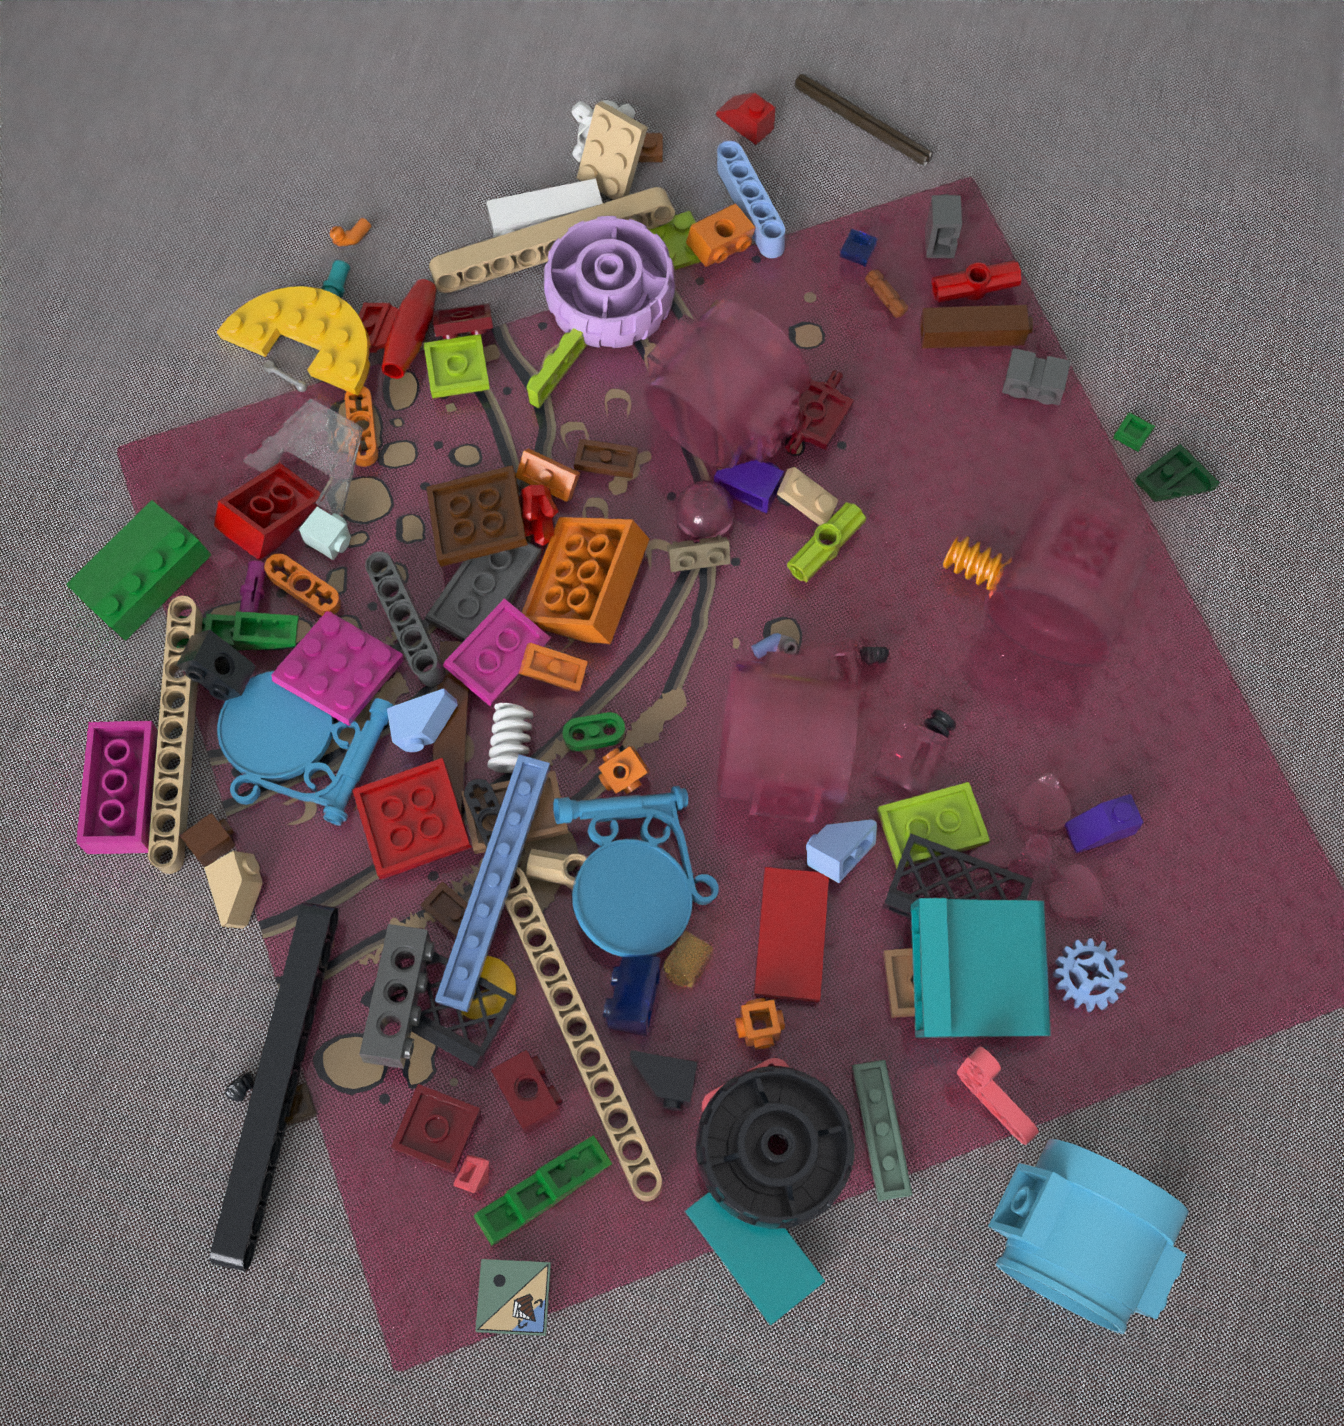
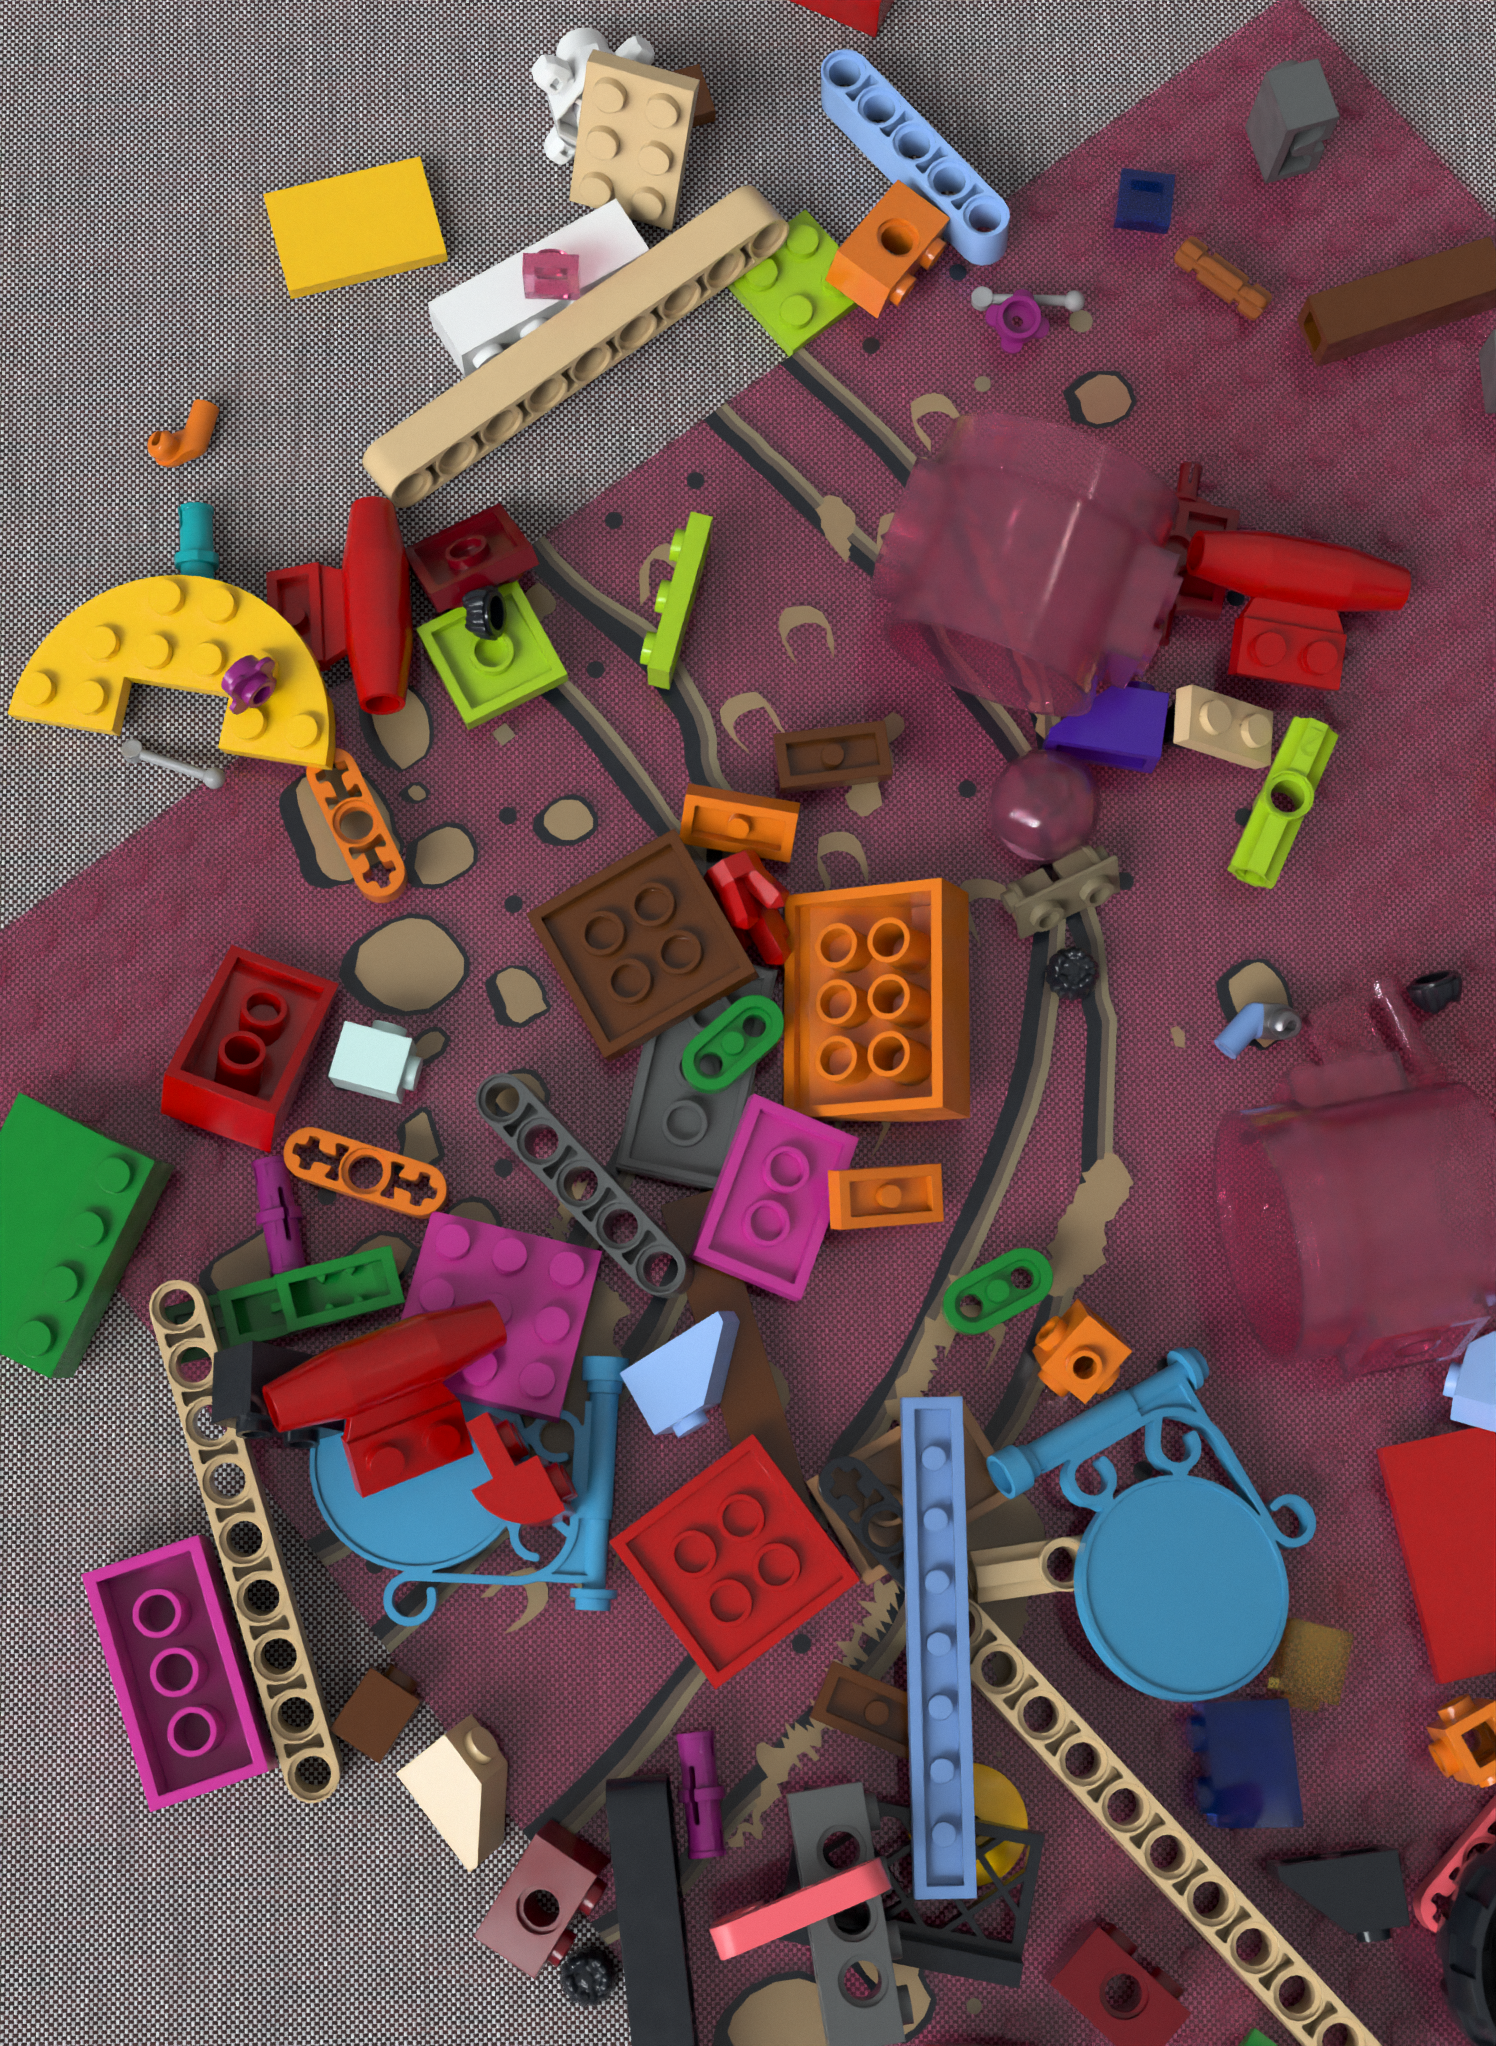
camera: 25 degrees left, 10 degrees up
(236, 955) = (516, 1922): none -> brick
(262, 1003) = (588, 1976): none -> black piece
(269, 677) = (392, 1392): none -> red plate
(313, 737) = (520, 1491): none -> red brick
(321, 440) = (299, 884): clear wing -> none
(330, 340) = (249, 682): none -> magenta plate
(346, 981) = (764, 1922): none -> coral beam
(352, 927) = (701, 1794): none -> magenta pin
(458, 342) = (485, 612): none -> black piece
(468, 163) = (355, 227): none -> yellow tile
(502, 572) = (731, 1044): none -> green plate
(508, 736) = (856, 1352): white piece -> none
(548, 201) = (551, 275): none -> clear pink plate
(609, 281) = (733, 459): lavender wheel -> none
(690, 594) = (1072, 973): none -> black piece
(762, 273) = (983, 298): none -> light grey hinge
(778, 278) = (1021, 306): none -> magenta plate
(866, 446) = (1296, 590): none -> red plate
(963, 283) = (1400, 195): red piece -> none

